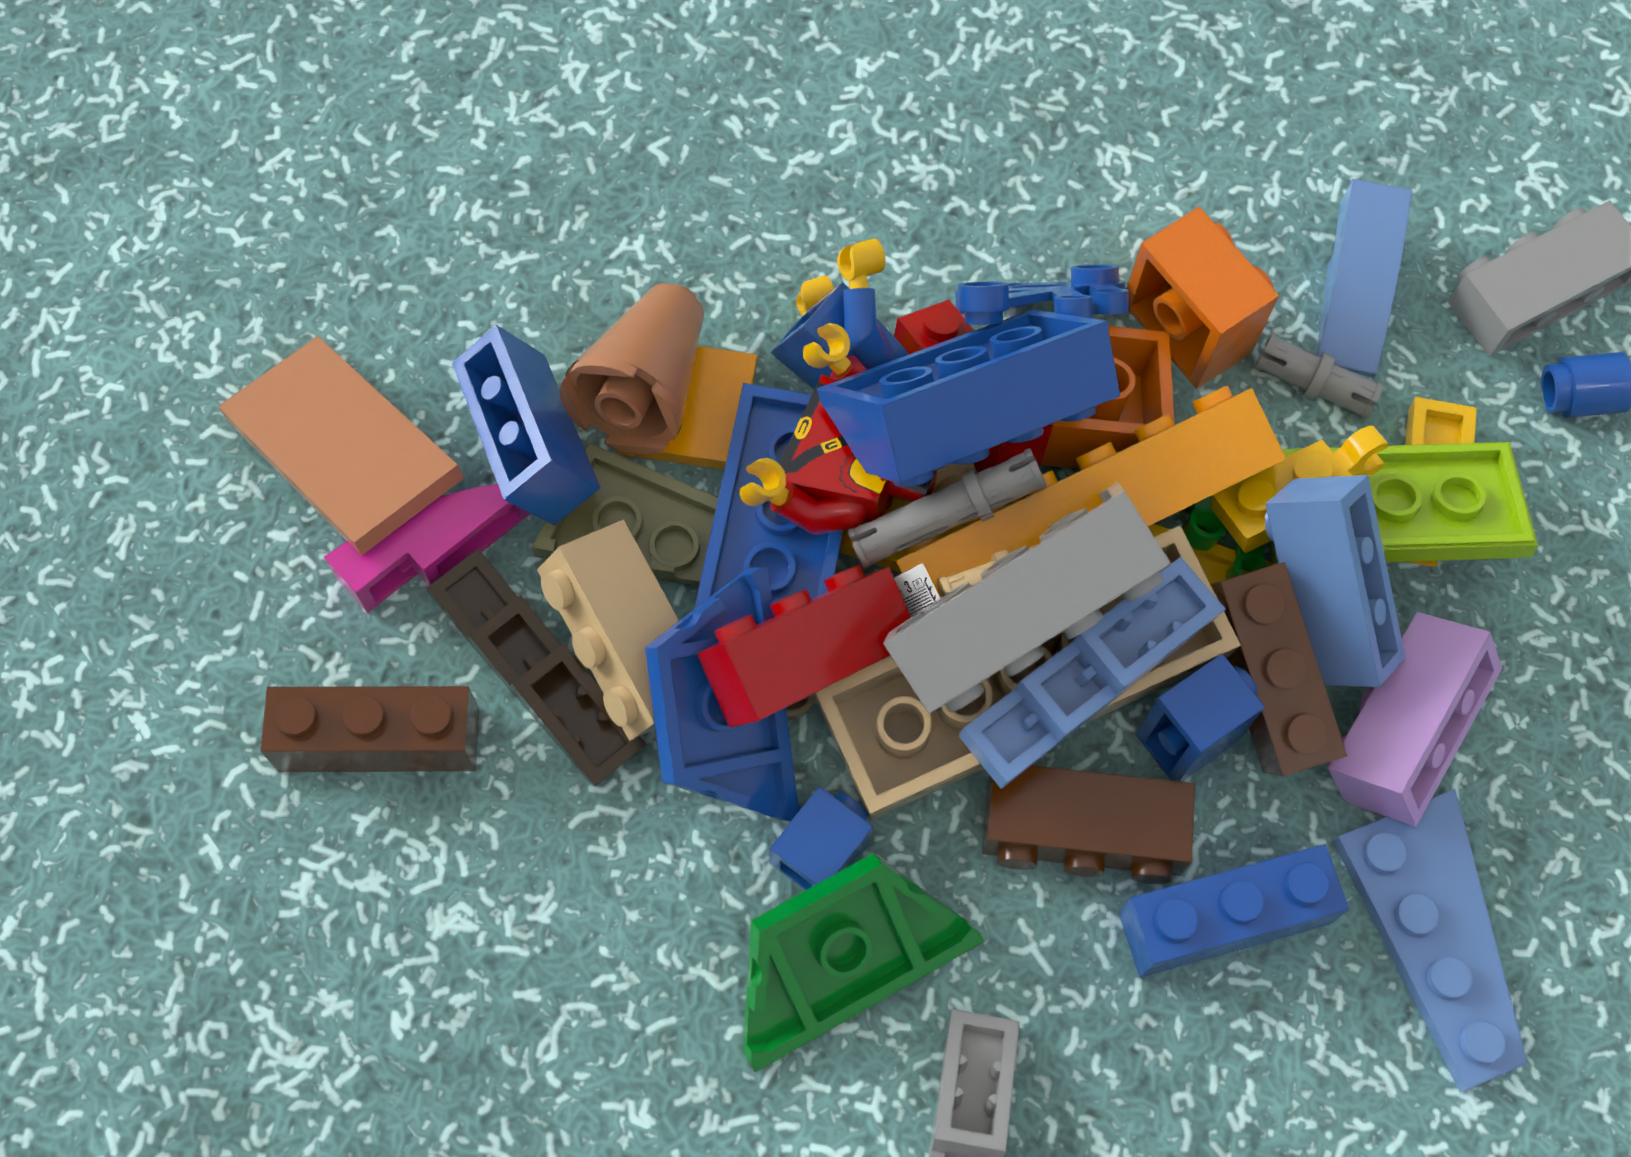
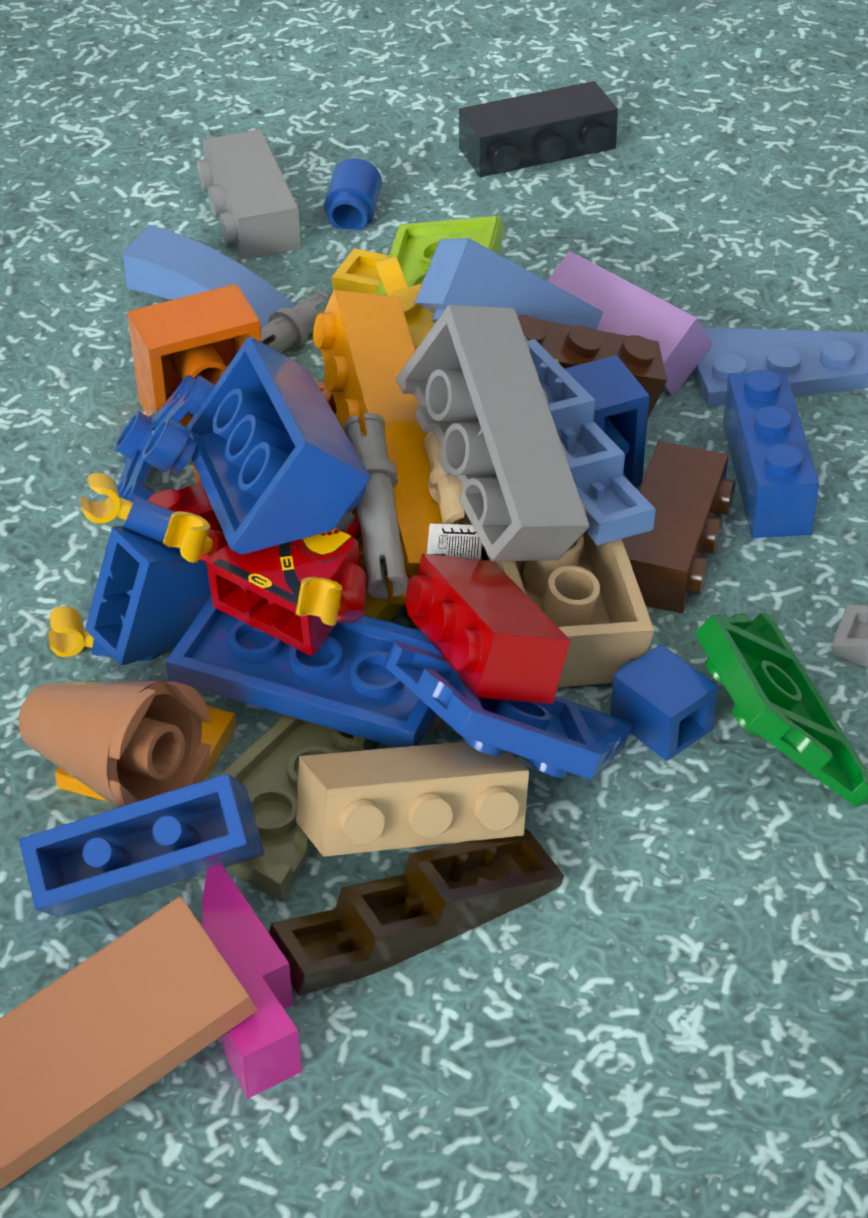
camera: 75 degrees left, 25 degrees down
(370, 729) = (461, 1054): reddish brown brick -> none

